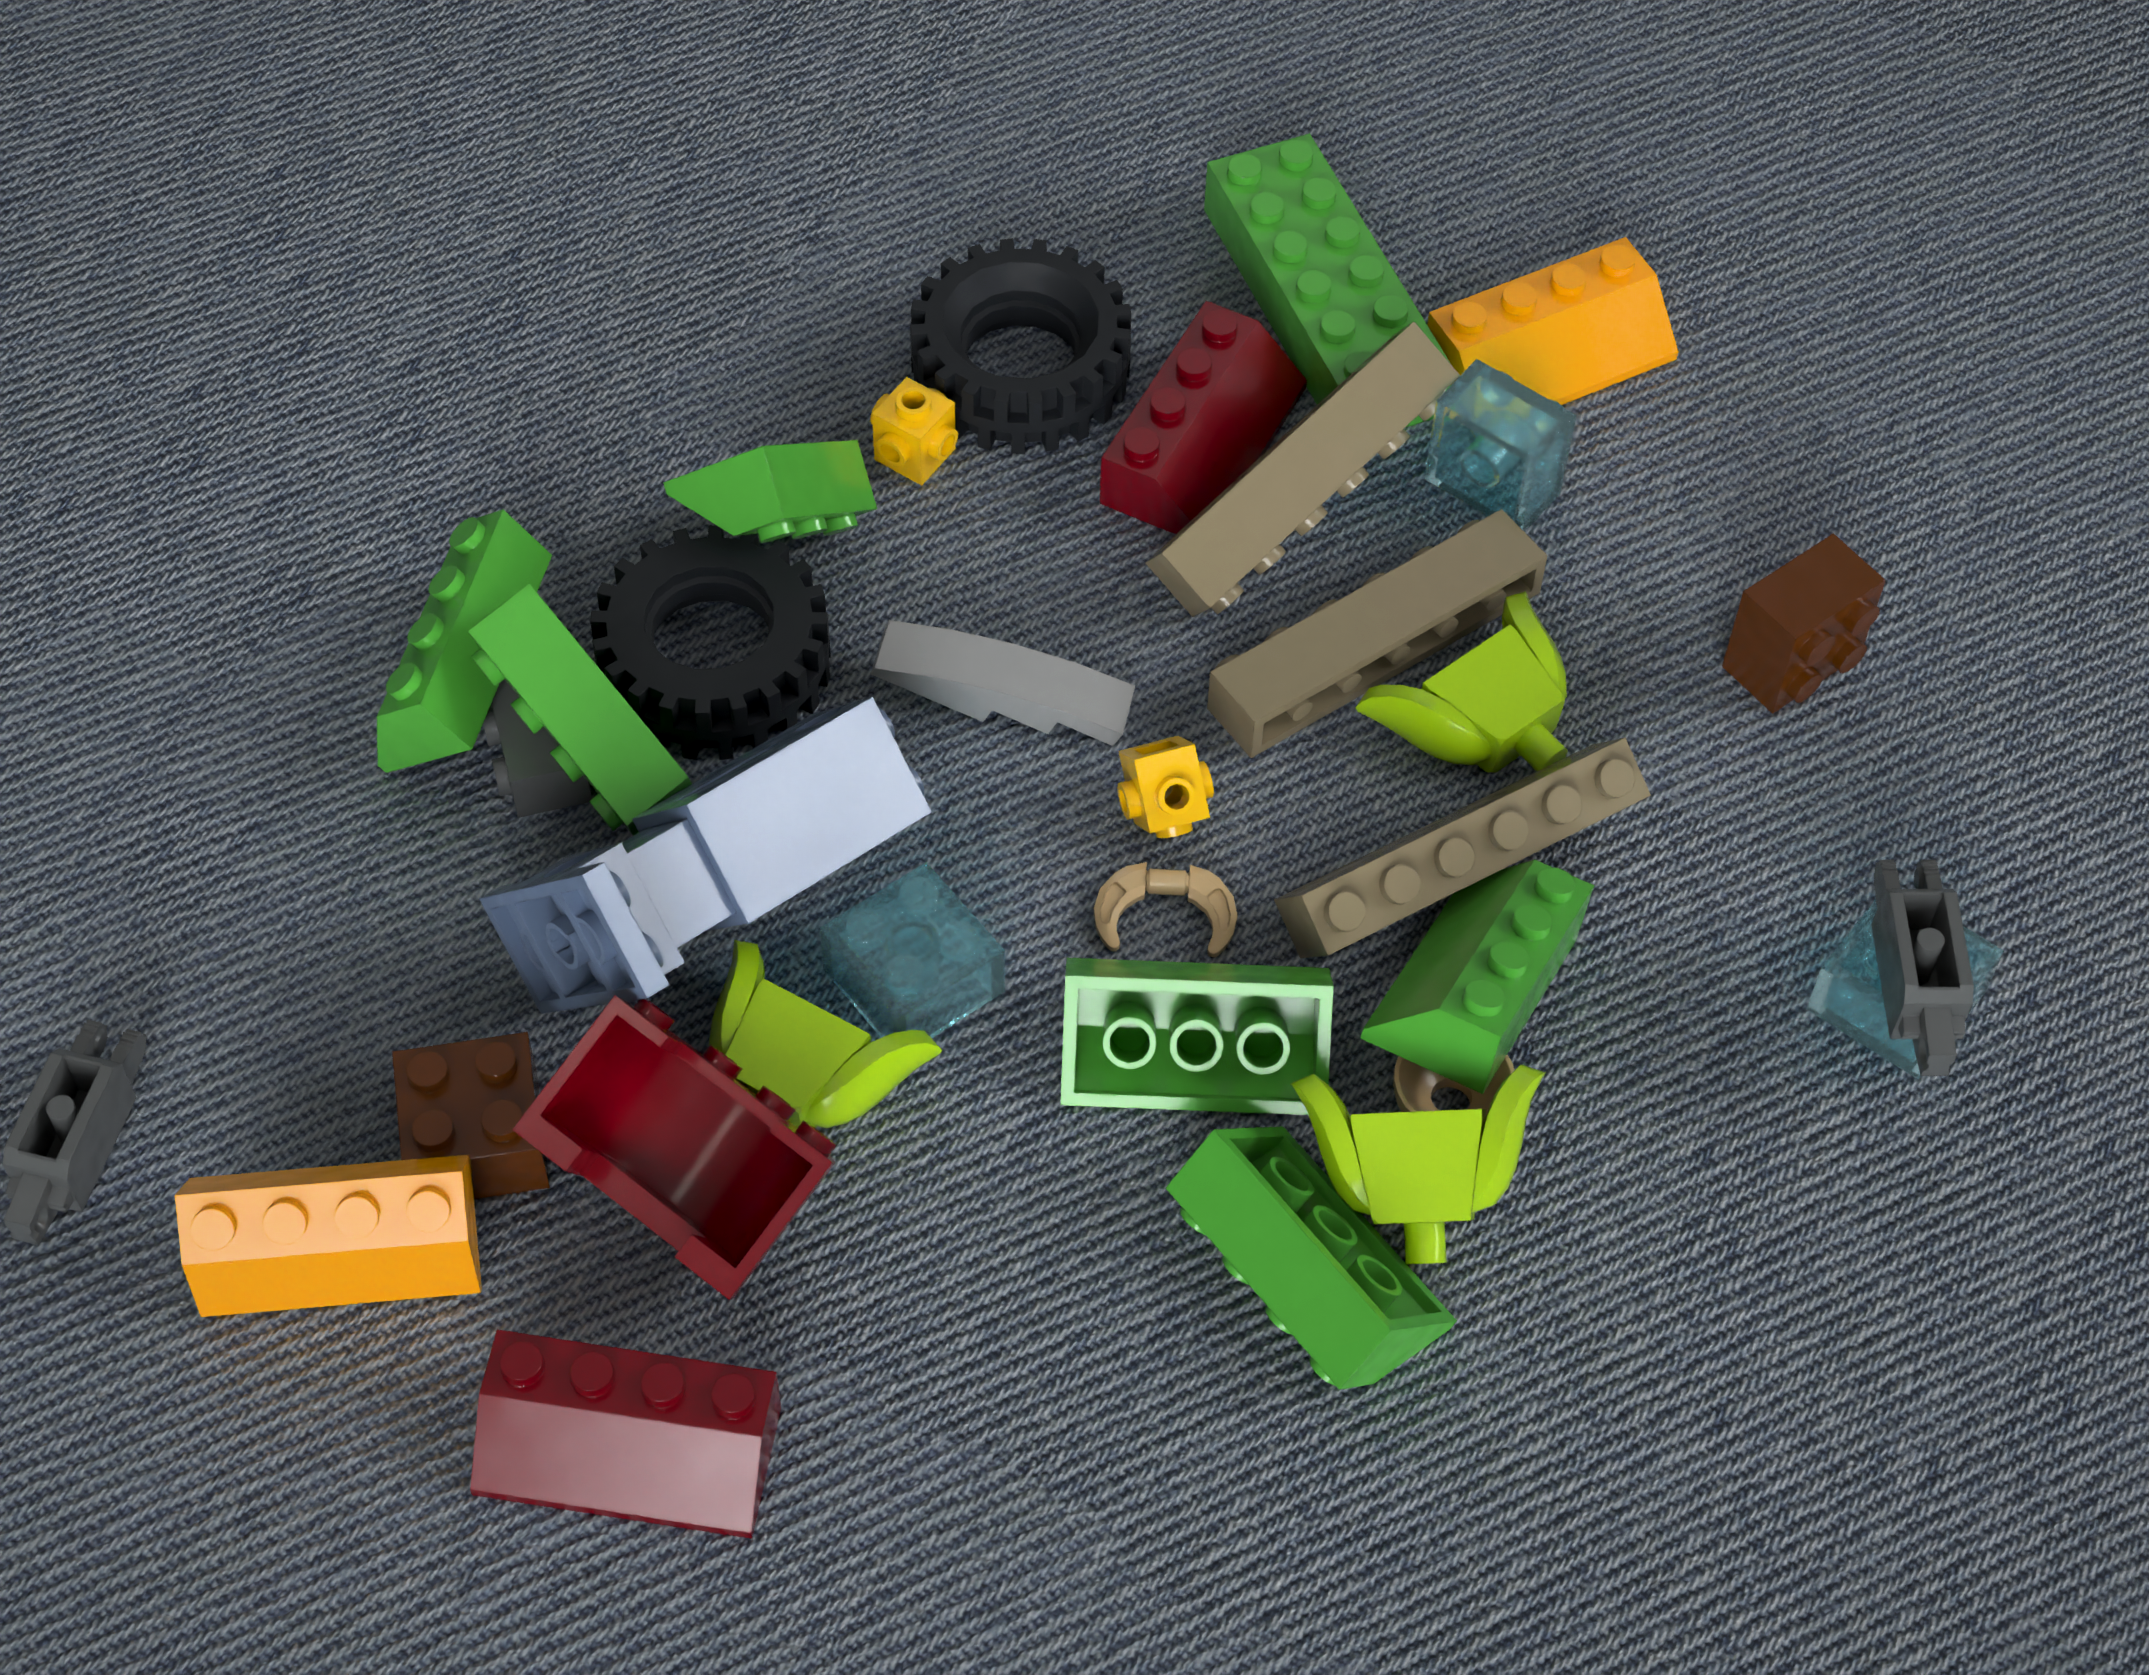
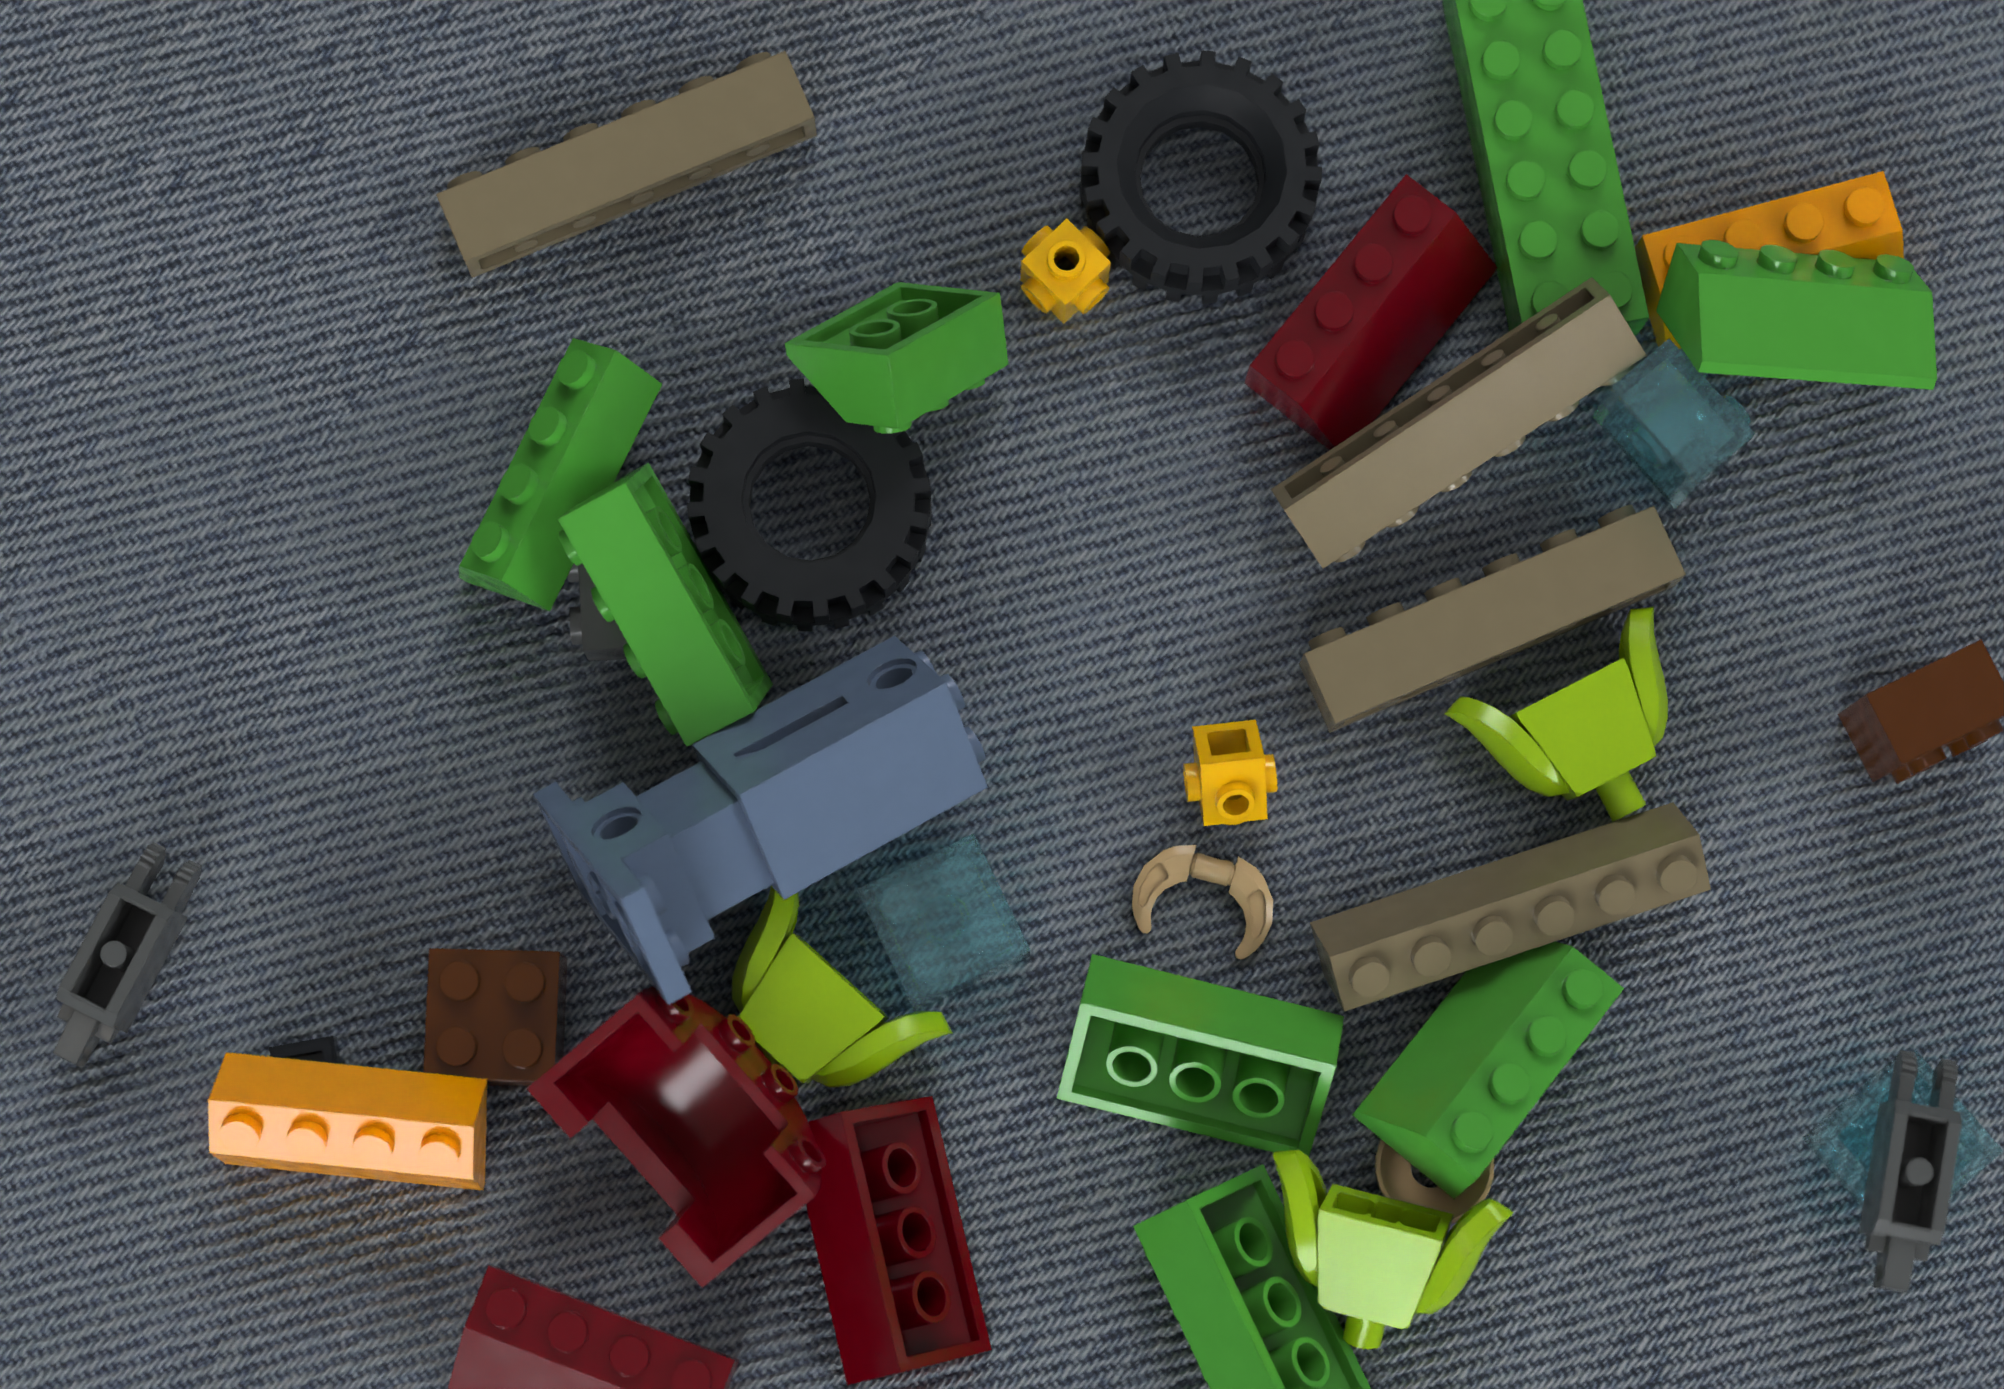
camera: 10 degrees right, 25 degrees up
(489, 417) = (627, 162): none -> dark tan brick
(919, 1256) = (893, 1242): none -> dark red slope
(1003, 677) = (1095, 607): light grey slope -> none
(1586, 335) = (1800, 315): none -> bright green slope

